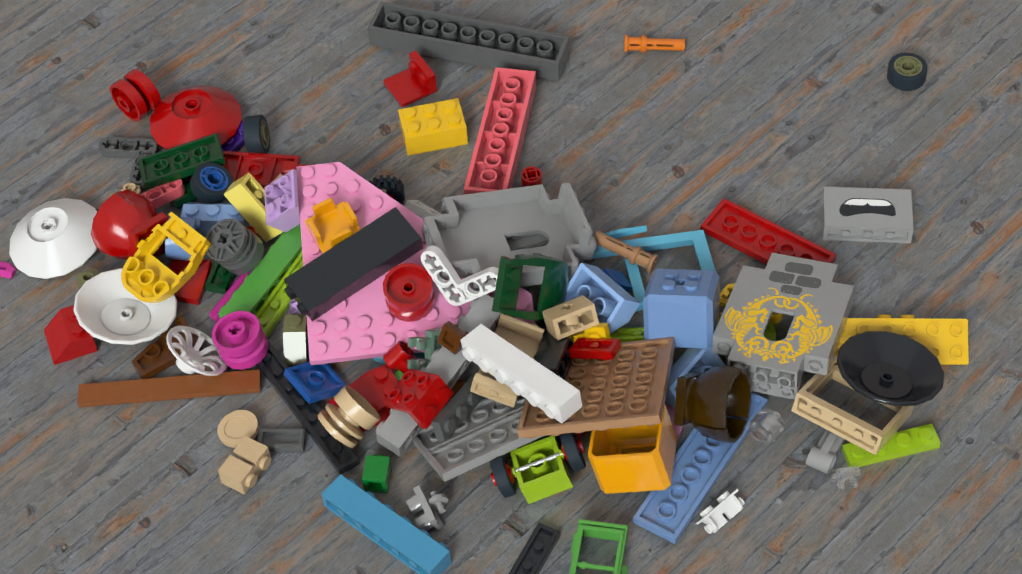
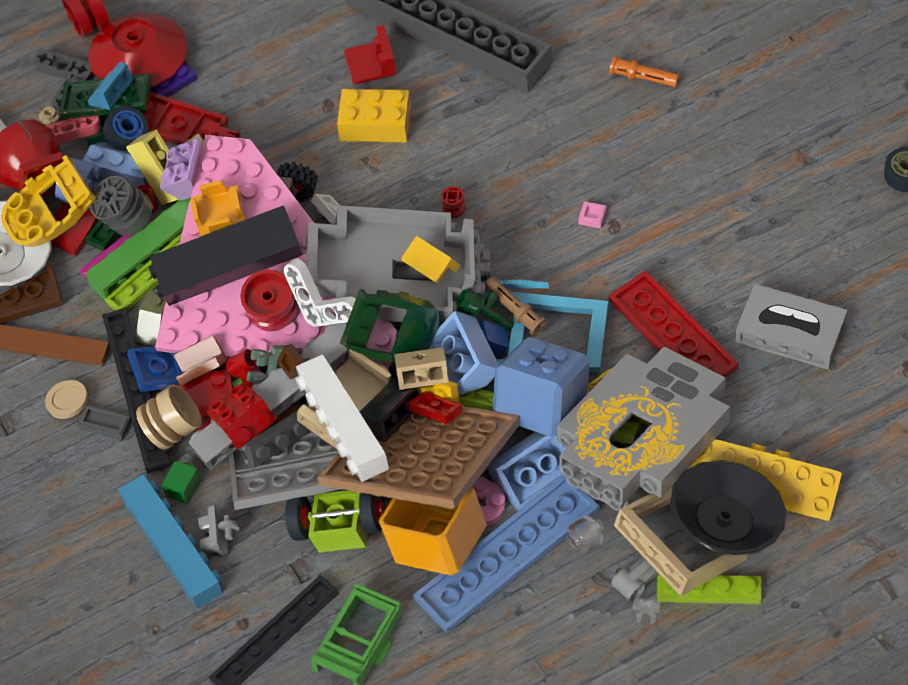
camera: 20 degrees right, 5 degrees up
(187, 150) = (112, 87): none -> dark azure panel
(191, 359) = (46, 313): white wheel -> none
(240, 340) = (95, 307): dark pink wheel -> none
(244, 471) = (57, 446): tan piece -> none
(256, 134) = (191, 83): black wheel -> none
(356, 361) = (199, 359): none -> panel
(501, 131) = (440, 141): coral brick -> none
(540, 226) = (428, 260): none -> yellow panel
(597, 254) = (475, 303): none -> dark green piece
(656, 165) = (592, 214): none -> bright pink tile
(709, 397) = (526, 488): dark brown plate -> none
(727, 504) = (495, 616): white hinge -> none

